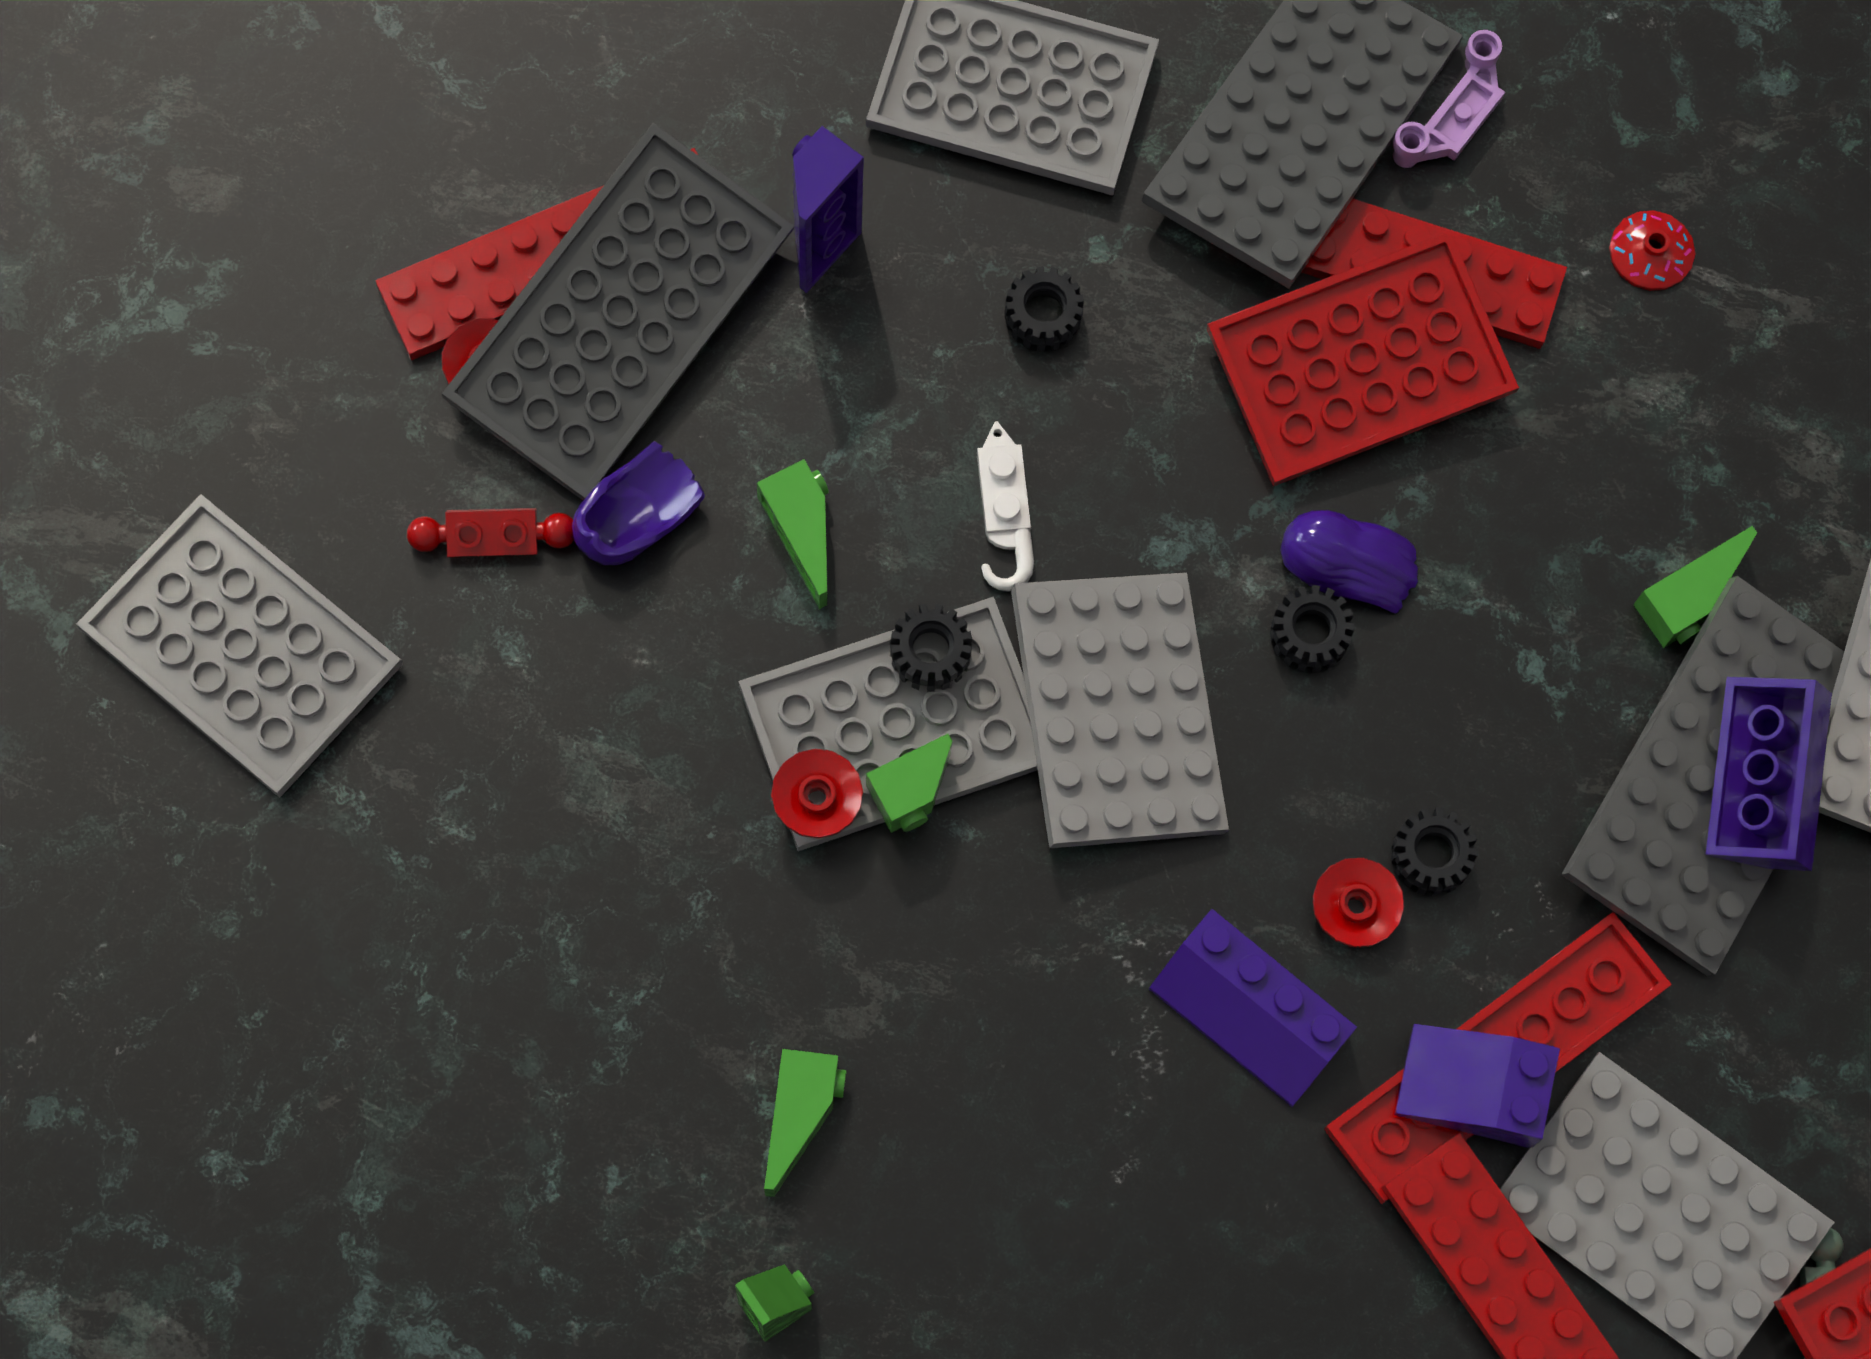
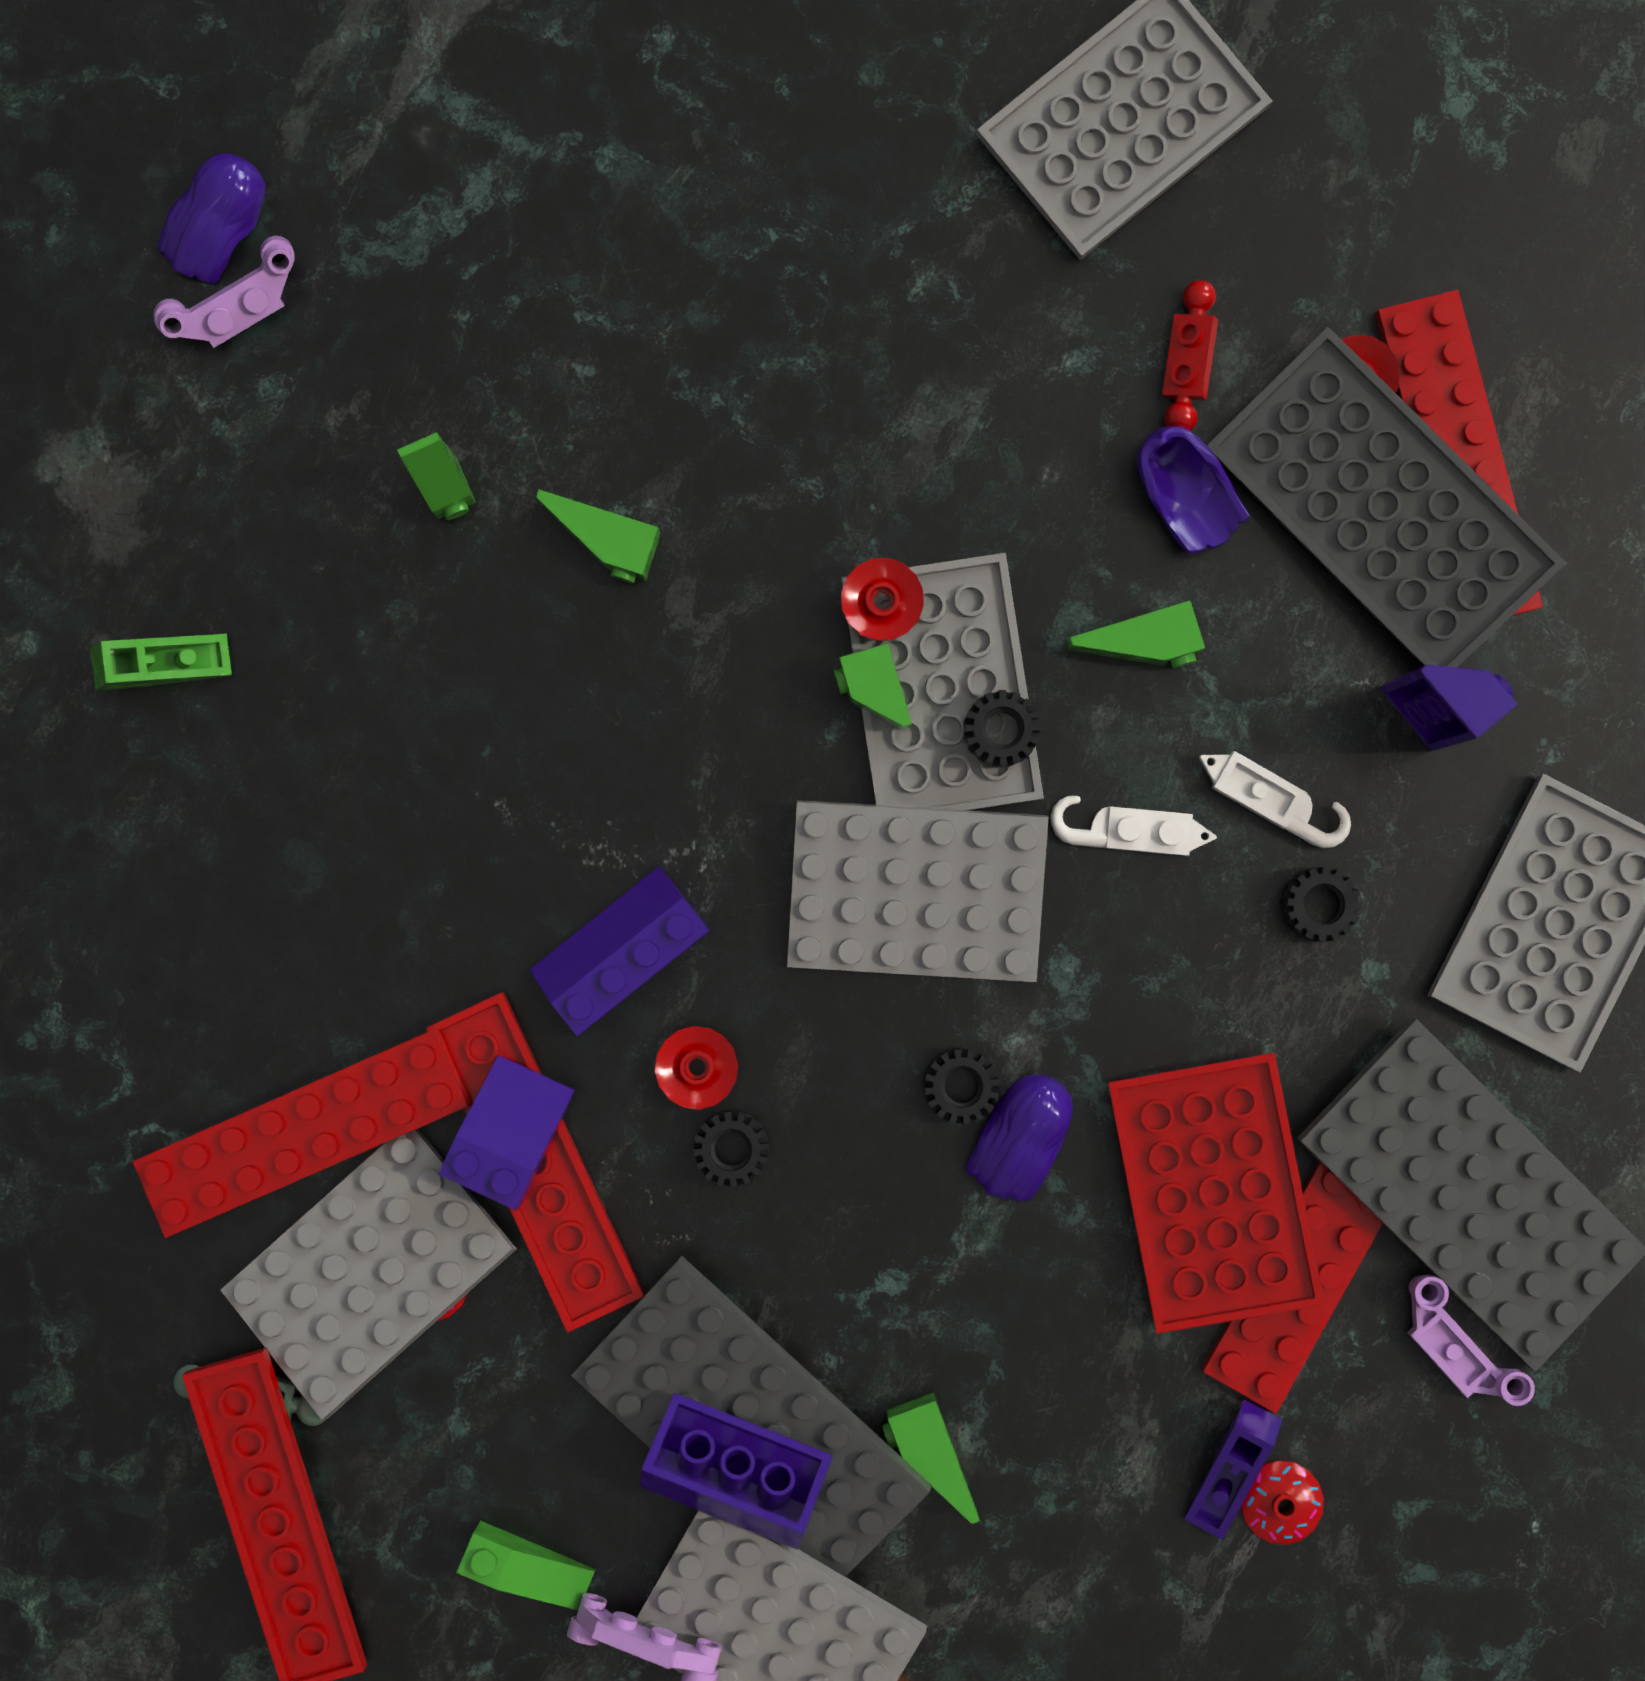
camera: 105 degrees right, 15 degrees up
(944, 374) = (1272, 798): none -> white plate
(1631, 295) = (1234, 1469): none -> dark purple slope

